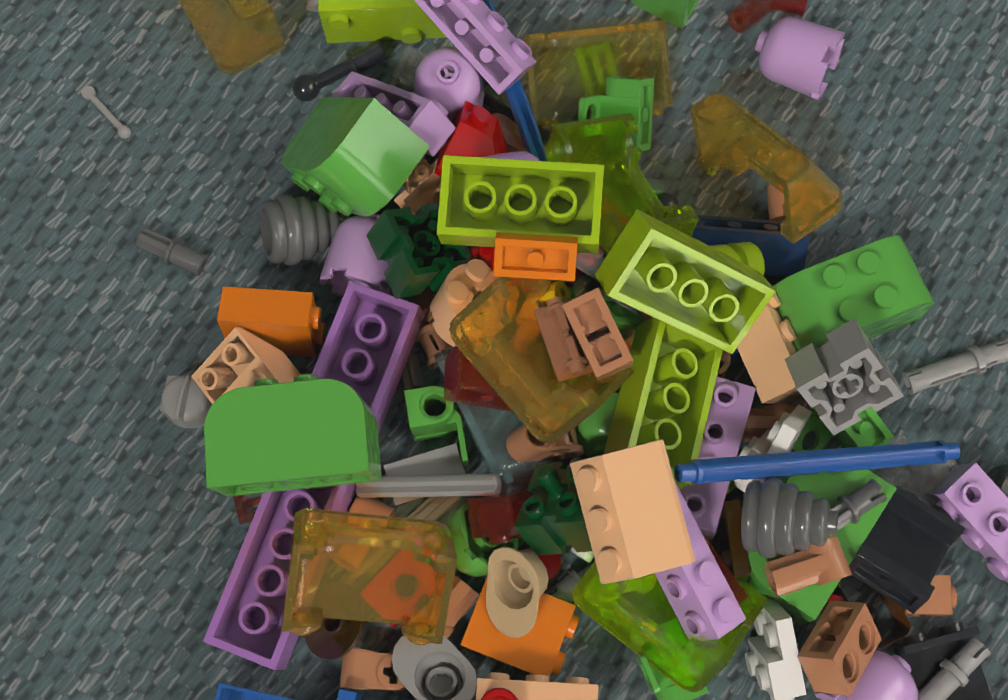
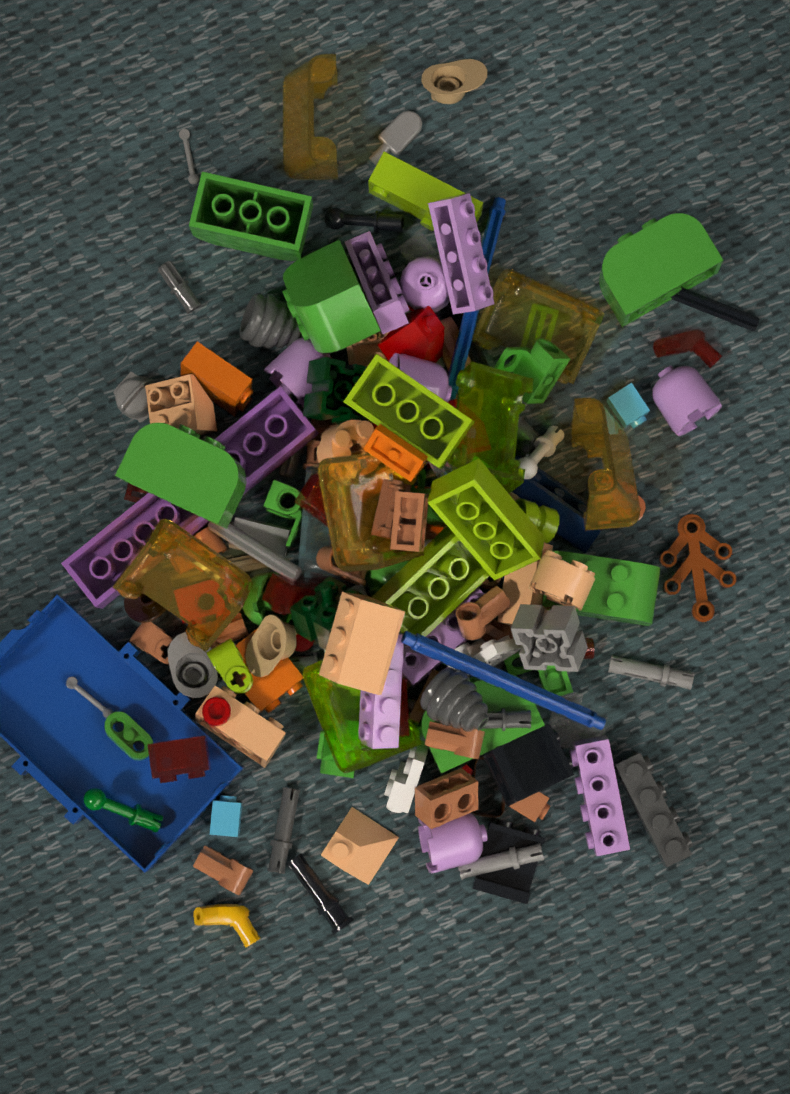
camera: 30 degrees right, 10 degrees up
(208, 124) = (250, 217): none -> bright green brick
(477, 640) = (228, 663): none -> lime piece
(685, 186) = (545, 446): none -> white pin
(740, 402) = (474, 616): none -> nougat piece
(749, 93) = (628, 407): none -> medium azure brick
(816, 301) = (562, 581): none -> light nougat brick
(928, 220) = (696, 562): none -> dark orange plant

